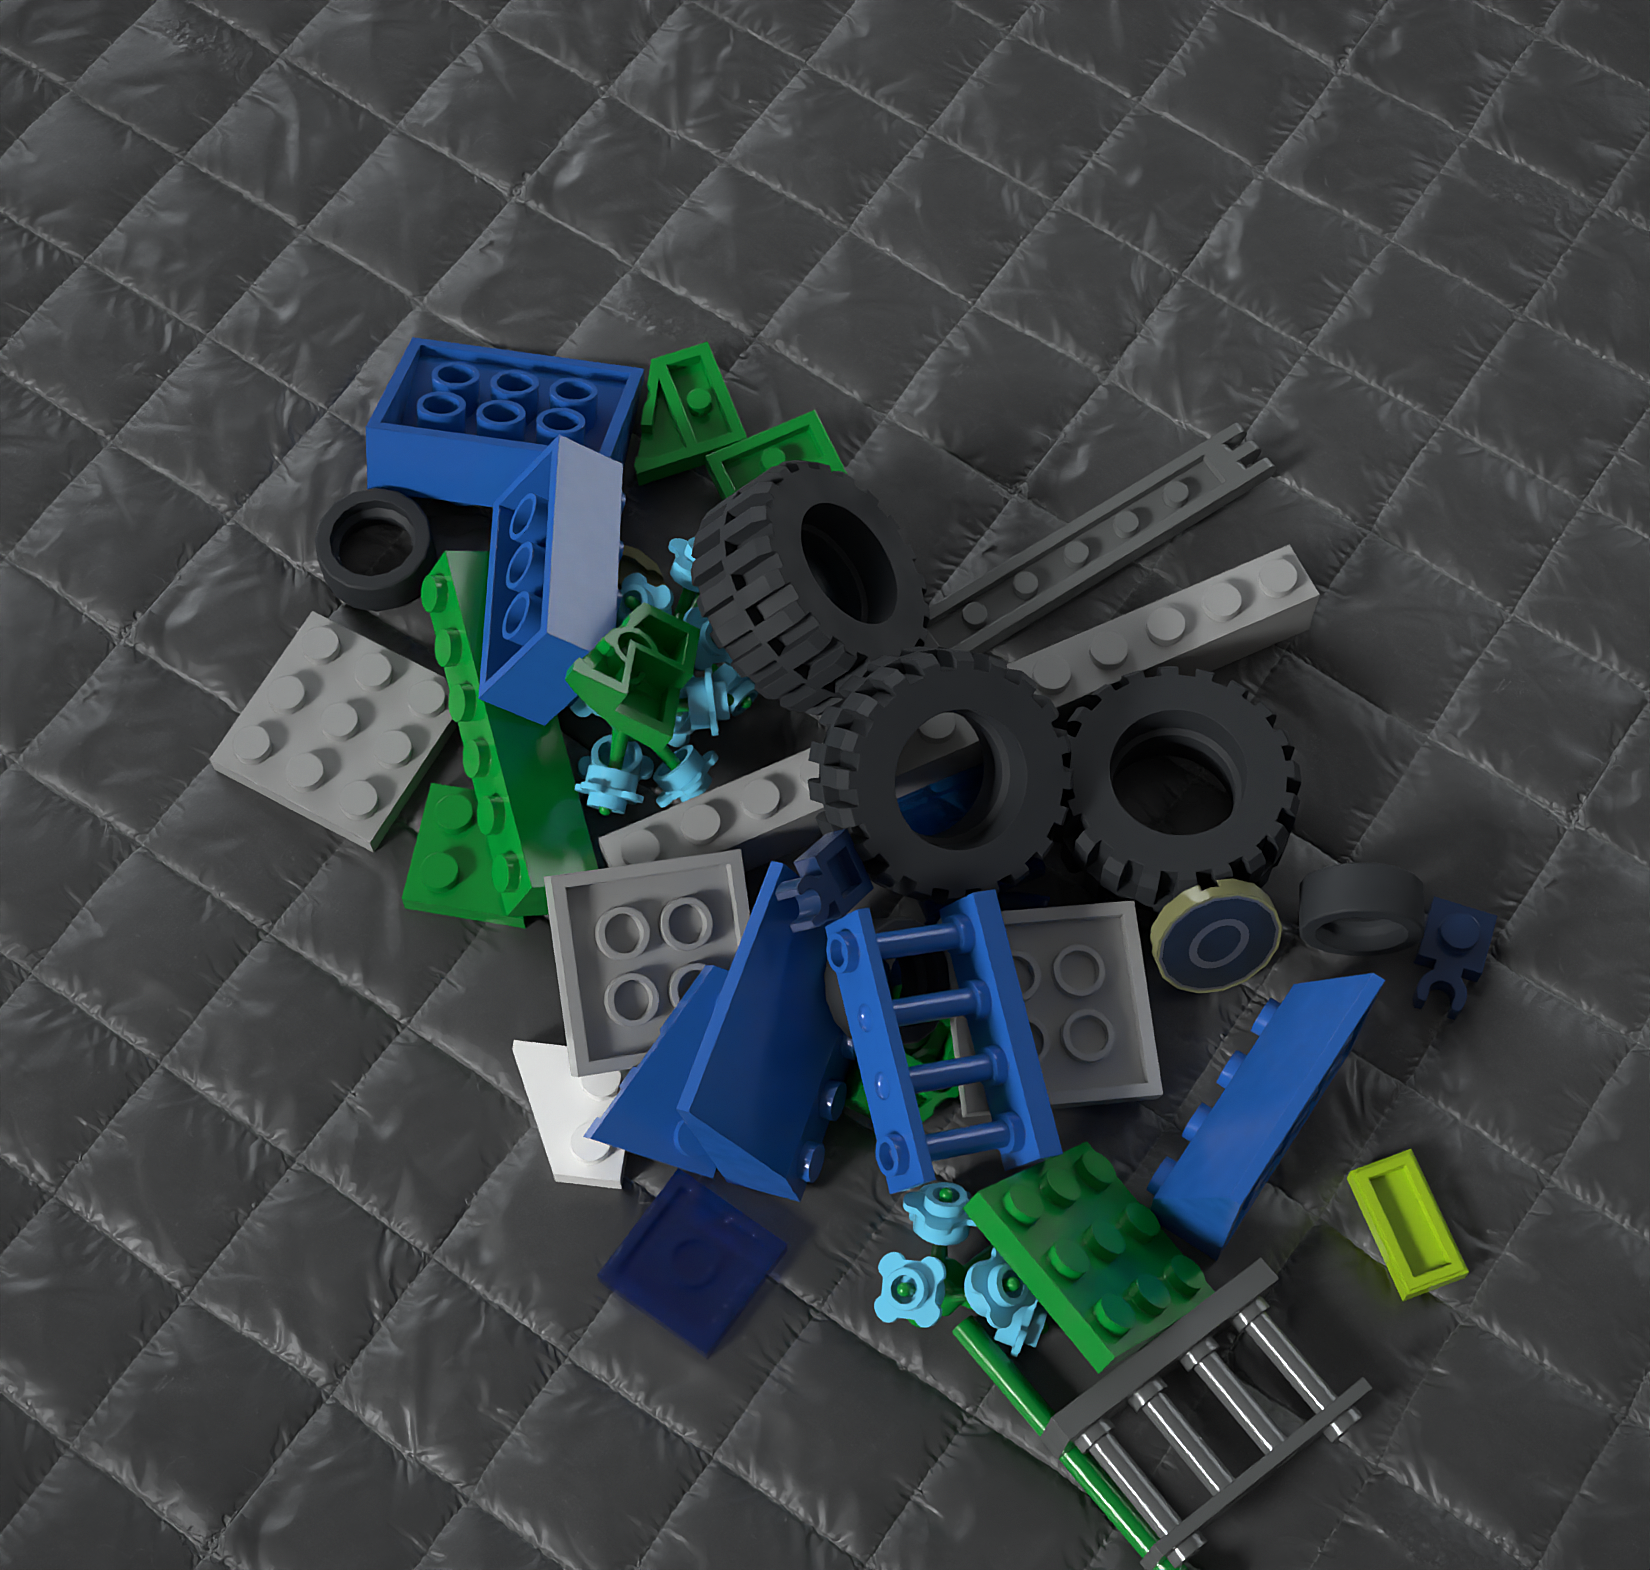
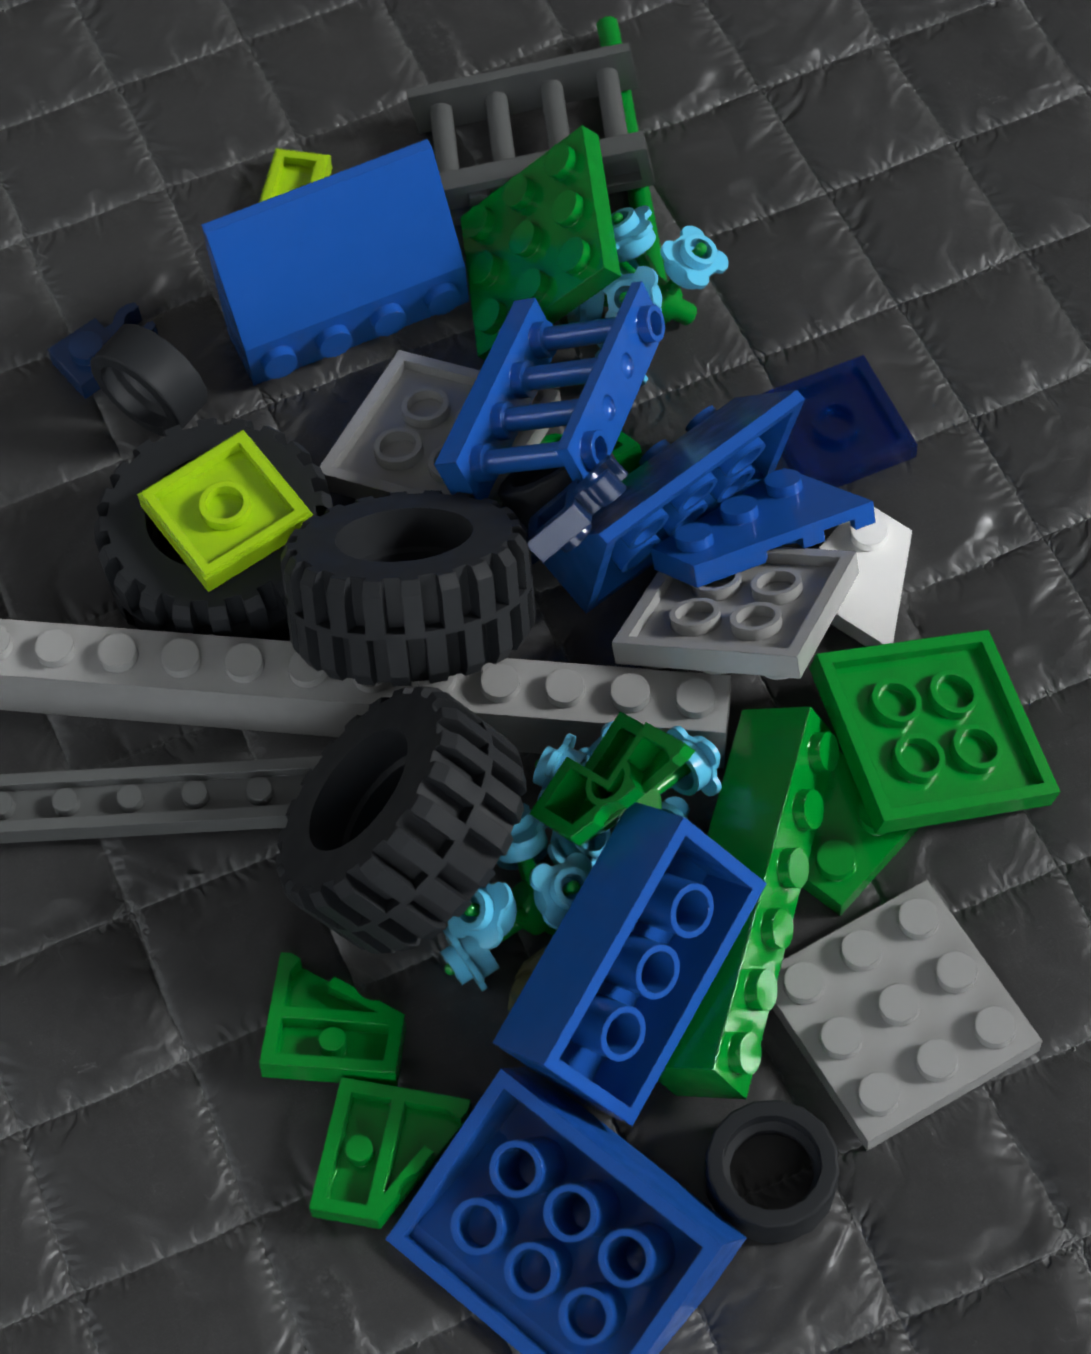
camera: 145 degrees left, 5 degrees down
(425, 964) = (933, 731): none -> green plate
(1159, 768) = (225, 510): none -> lime tile
(1215, 936) = (288, 419): tile -> none

